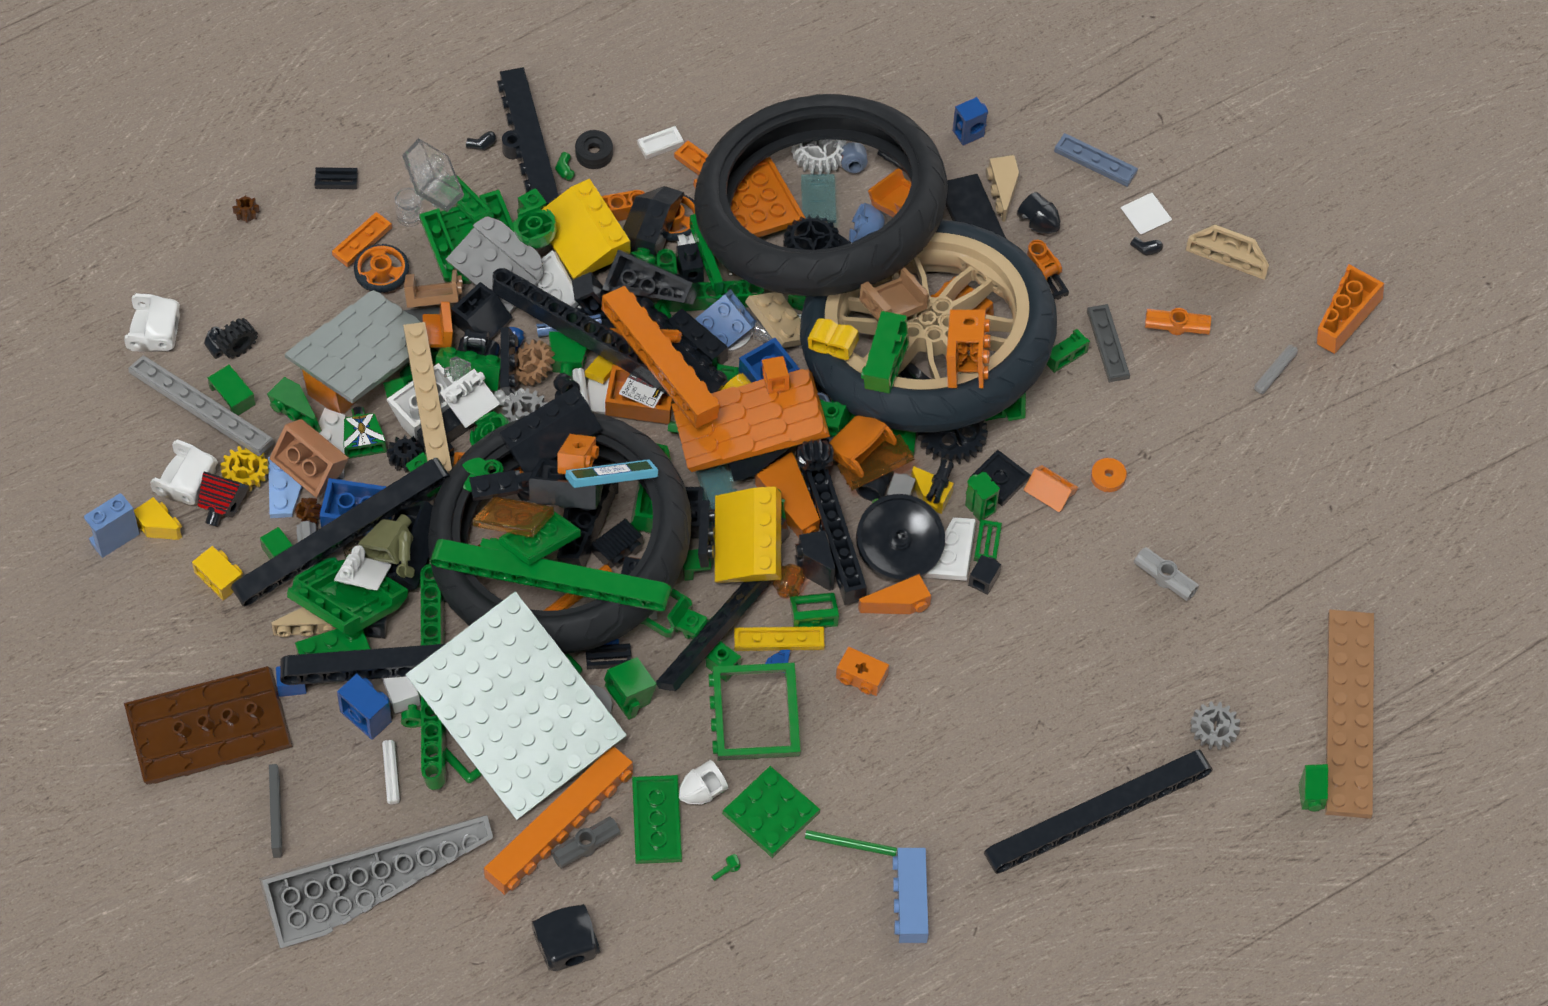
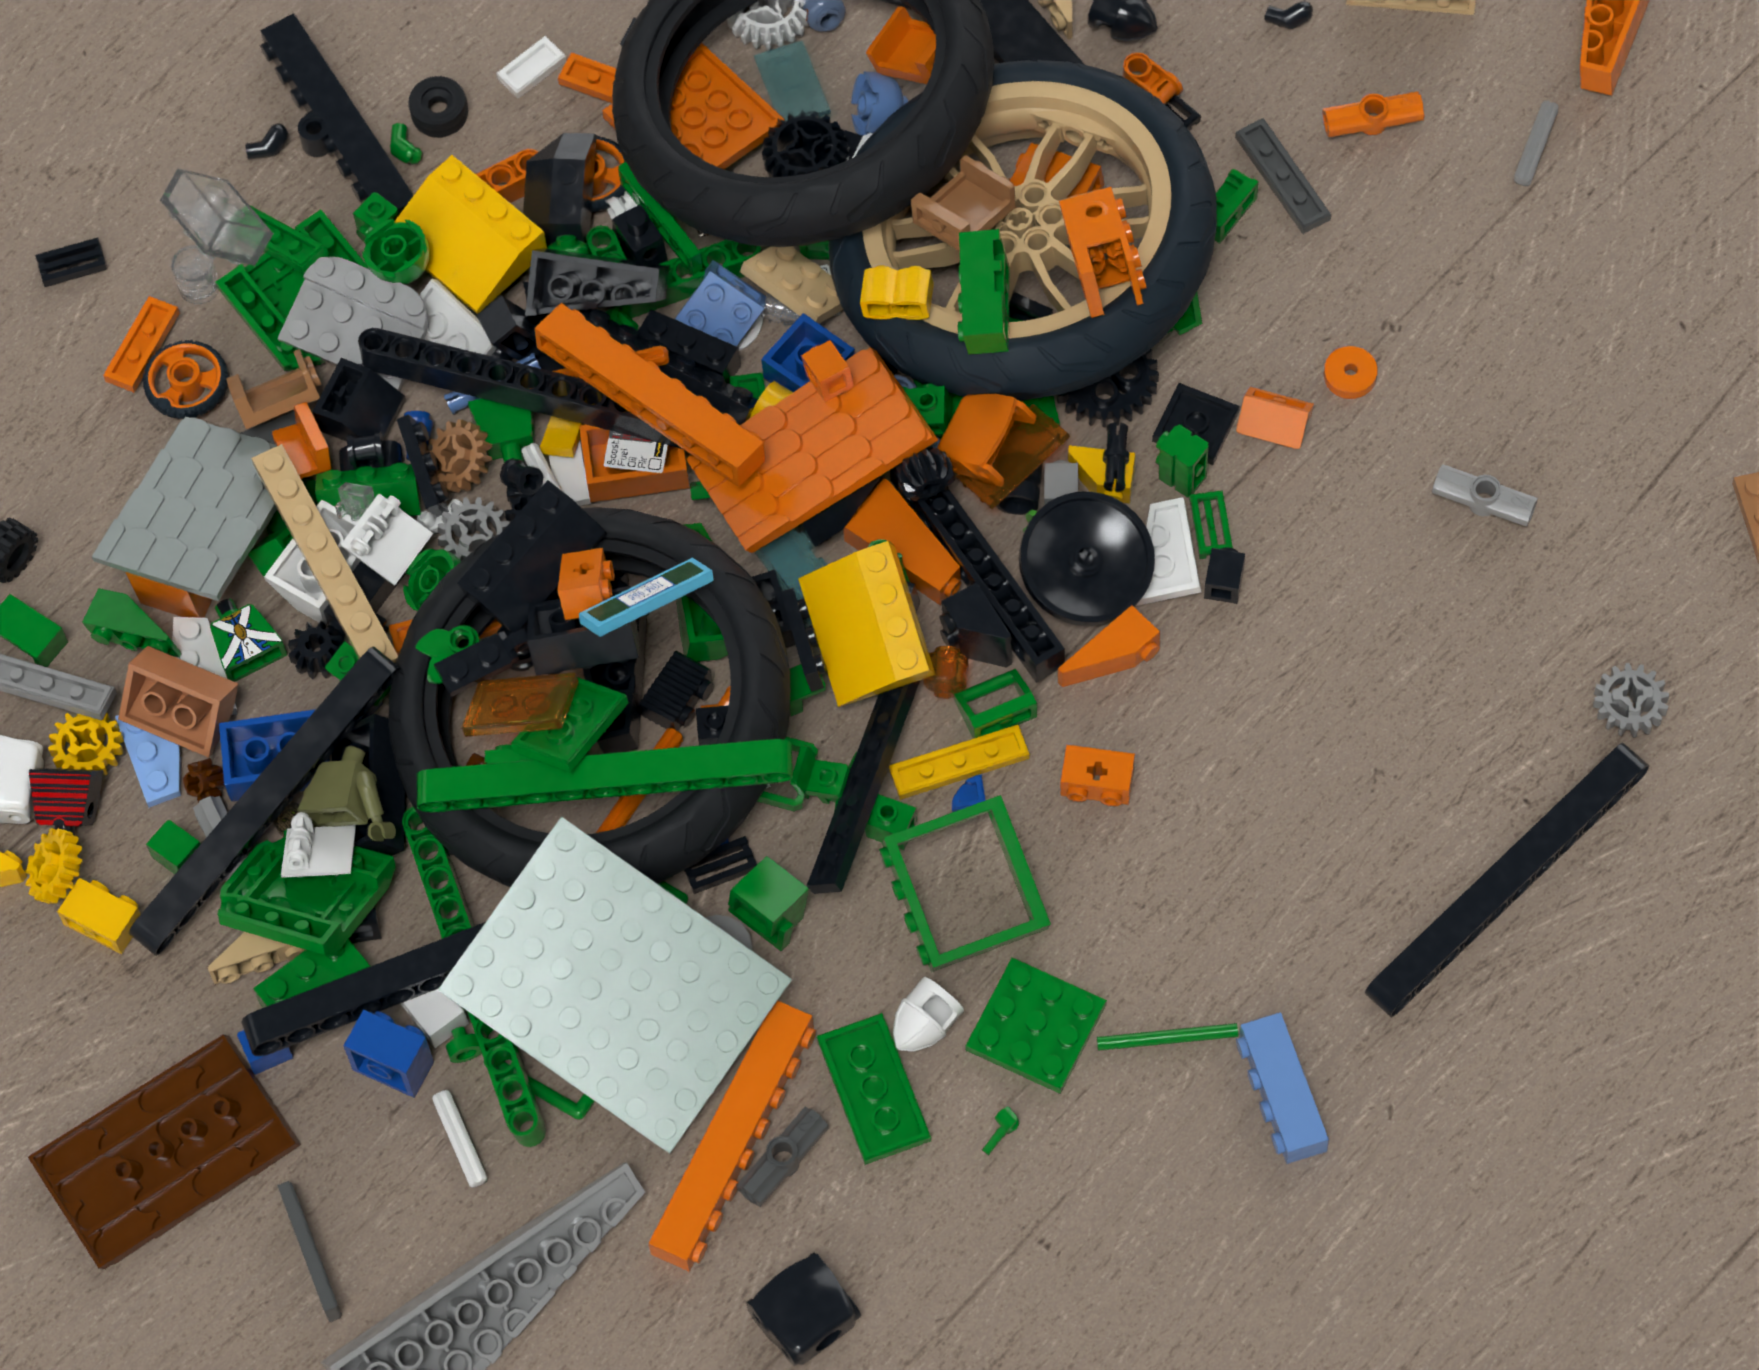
camera: 10 degrees left, 5 degrees up
(199, 534) = (53, 866): none -> yellow gear

